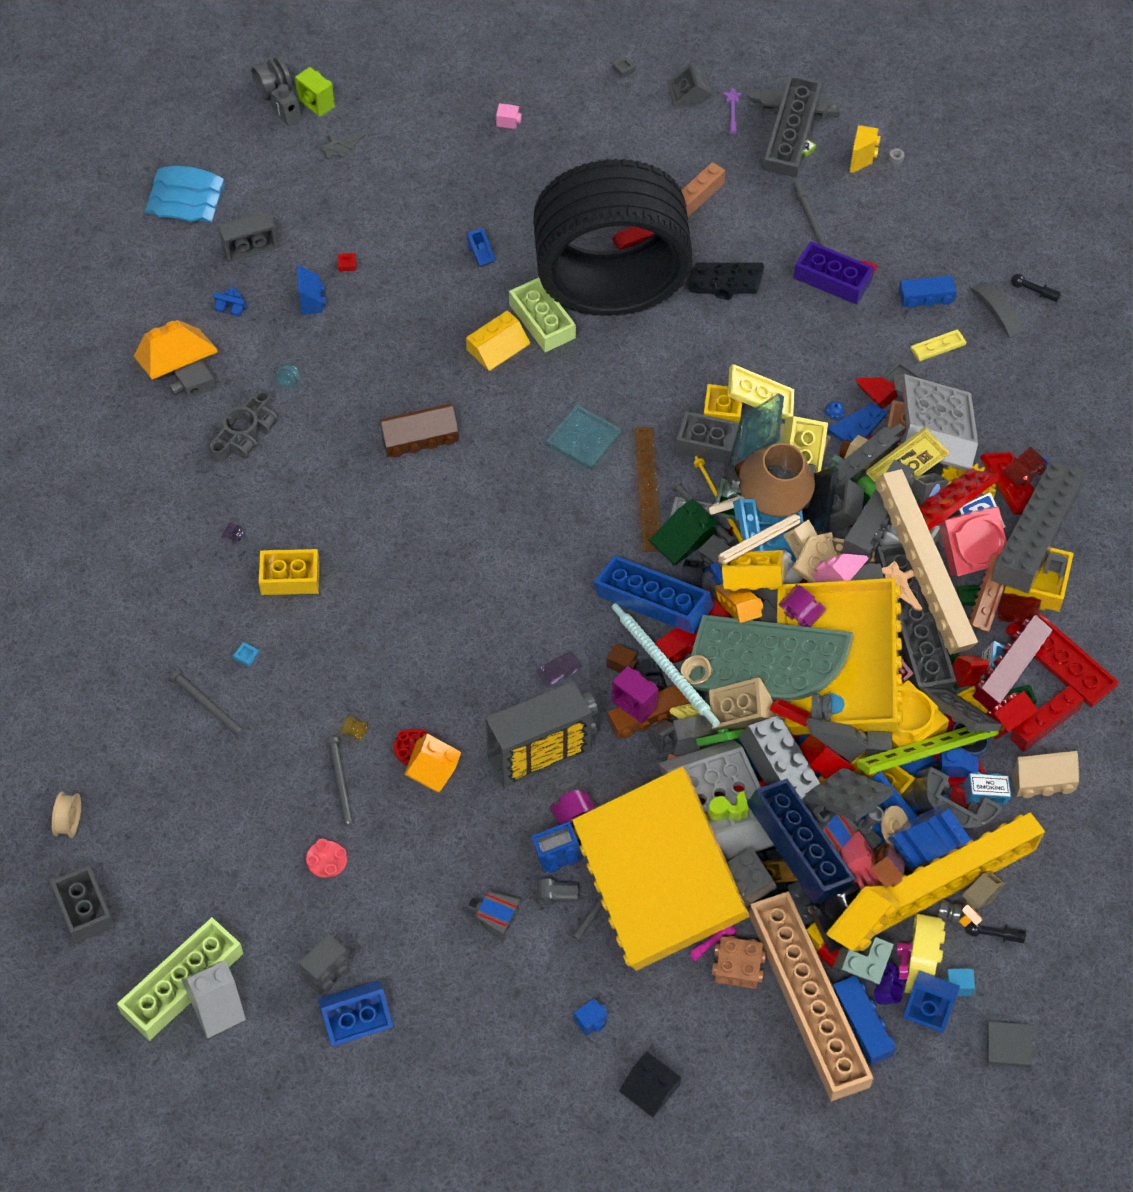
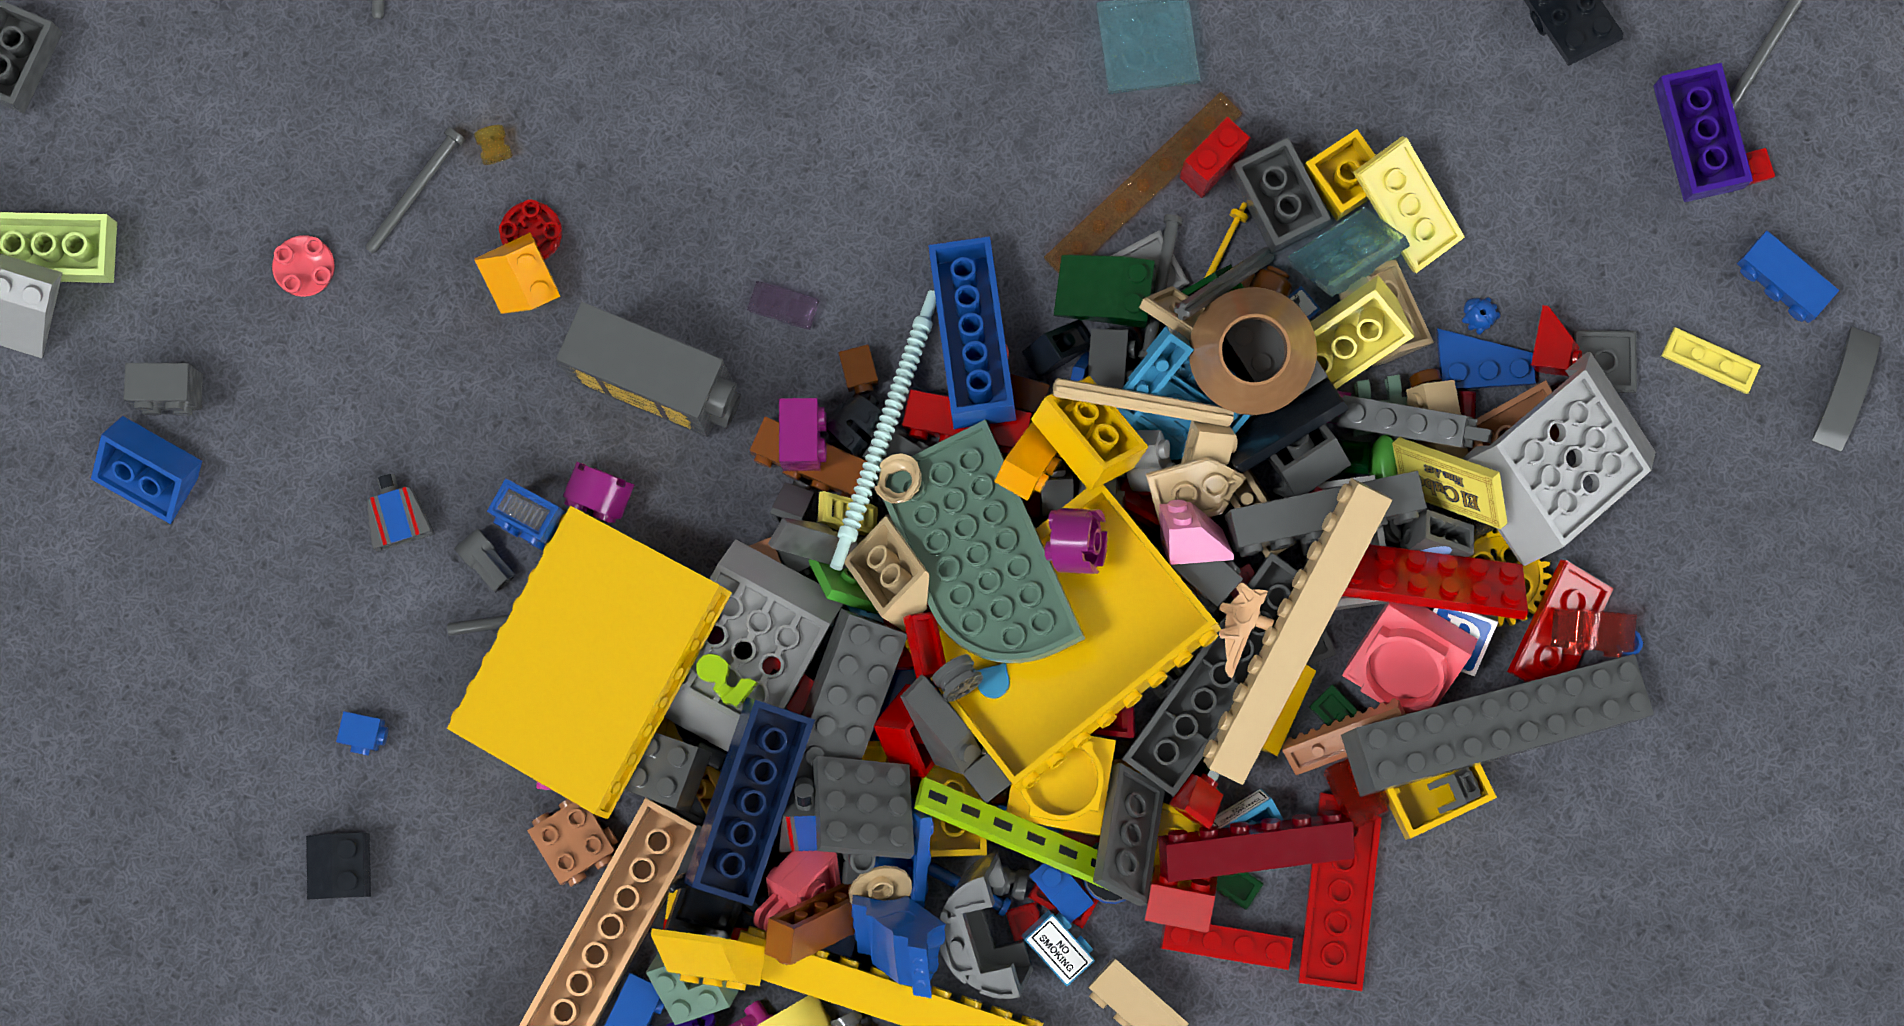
camera: 50 degrees right, 25 degrees up
(666, 445) = (1214, 157): none -> red brick

